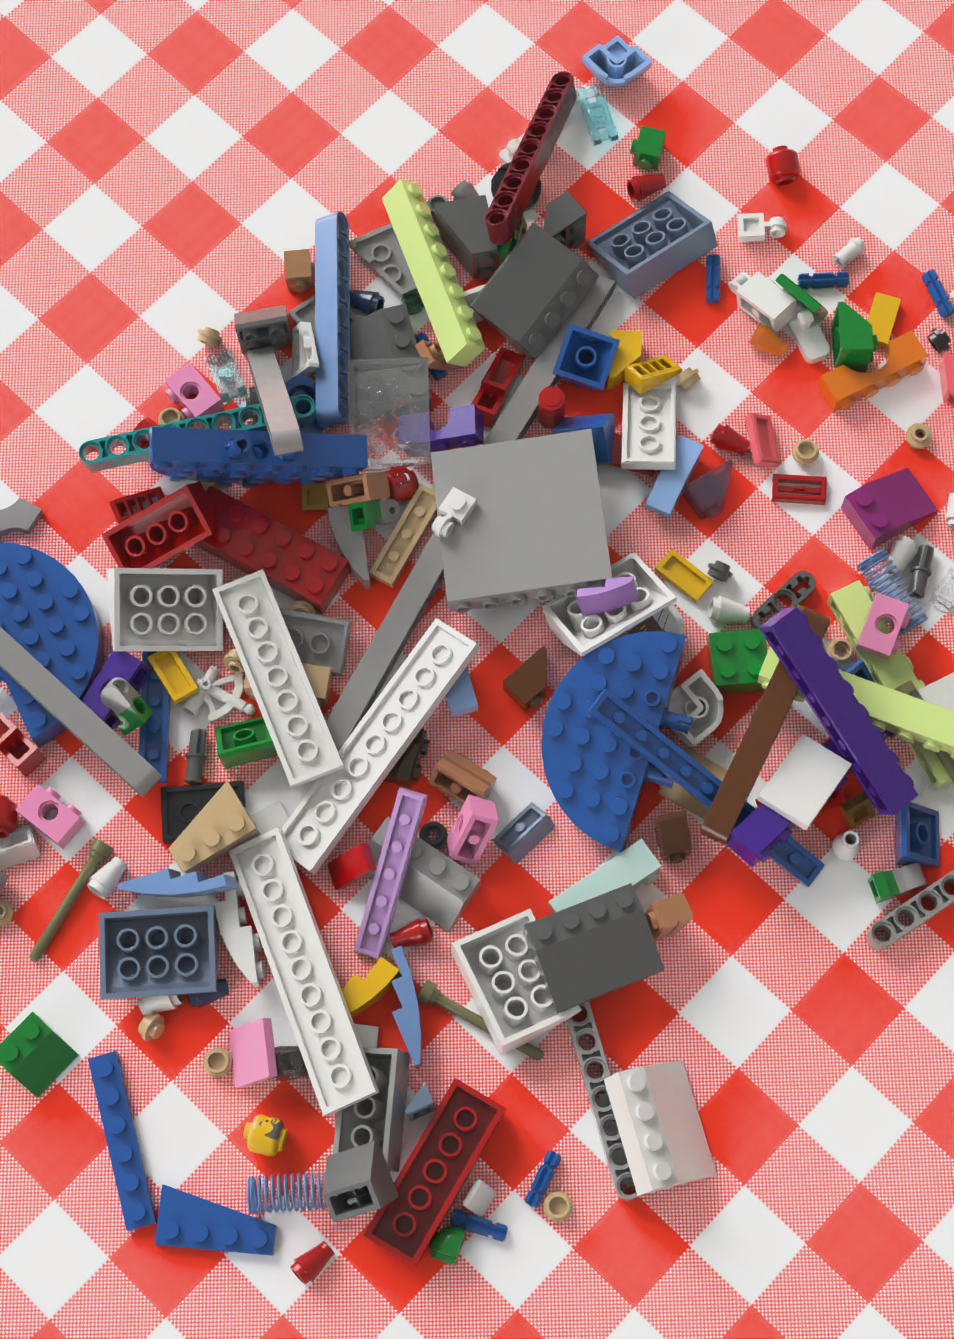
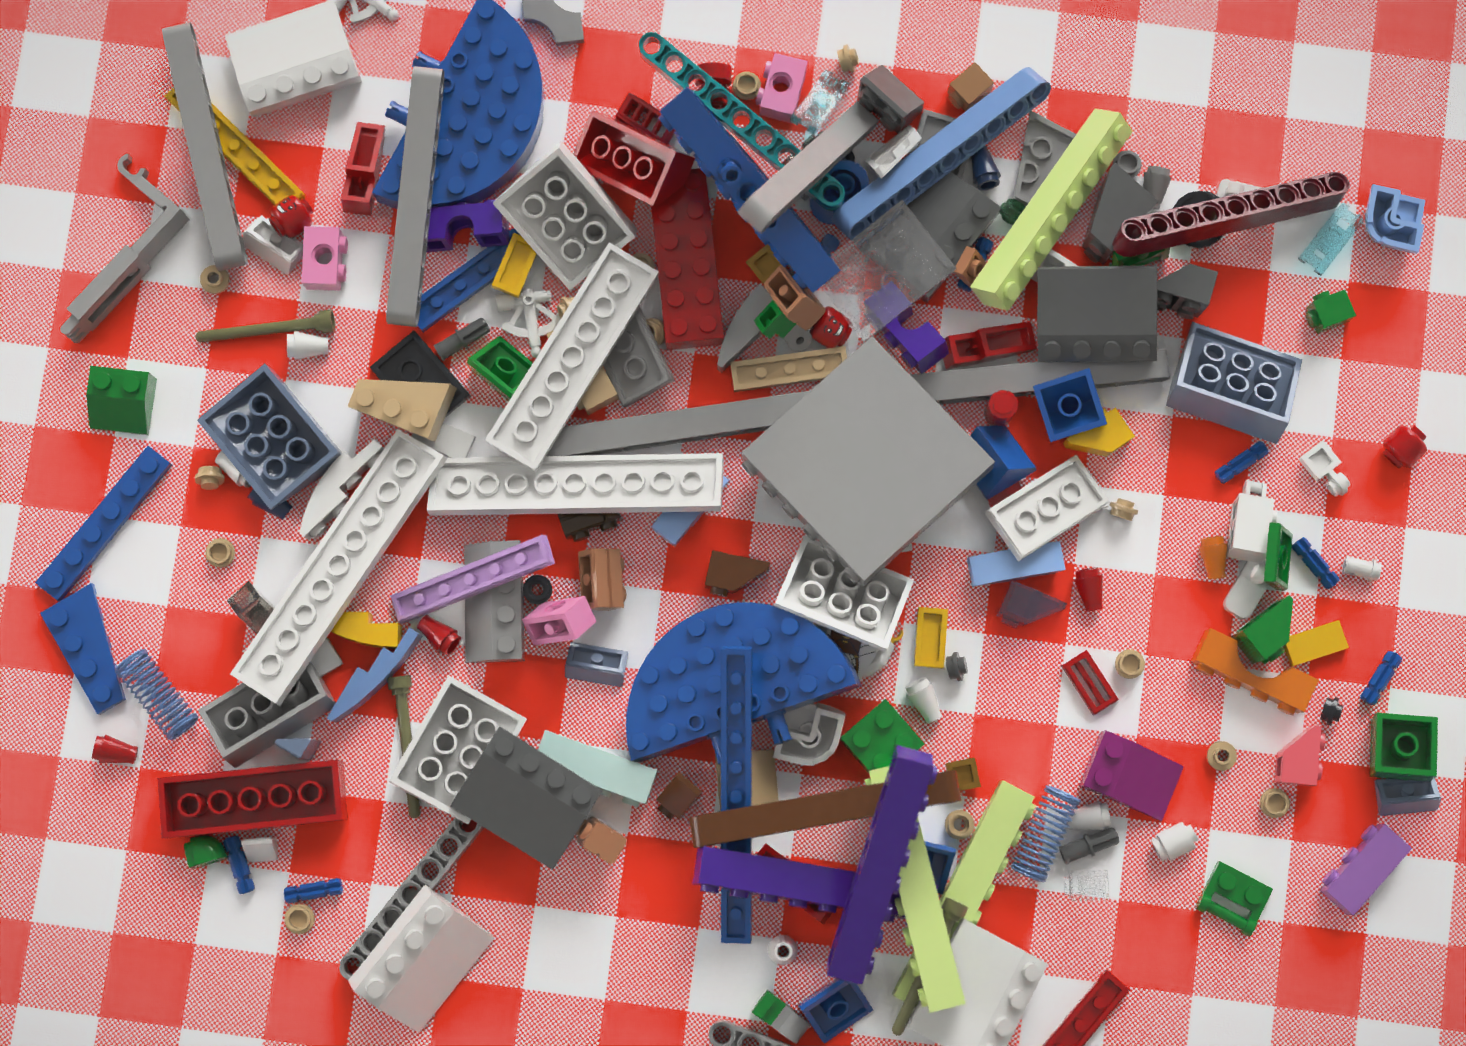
camera: 50 degrees right, 10 degrees up
(126, 704) = (456, 248): leg -> none
(171, 884) = (334, 405): medium blue slope -> none
(253, 1053) = (244, 577): bright pink tile -> none
(265, 1135) = (186, 637): yellow head -> none
(351, 866) = (457, 541): red tile -> none
(357, 1182) = (192, 743): dark grey slope -> none
(456, 508) = (834, 397): white plate -> none
(614, 595) = (851, 593): medium lavender slope -> none
(641, 379) = (1093, 478): yellow slope -> none
(645, 185) = (1287, 333): red cone -> none
(762, 440) = (1111, 617): coral tile -> none
(792, 584) = (990, 754): dark grey beam -> none
(804, 782) = (798, 878): white tile -> none
(857, 810) = (819, 937): pearl gold plate -> none
(883, 609) = (1014, 837): bright pink brick -> none

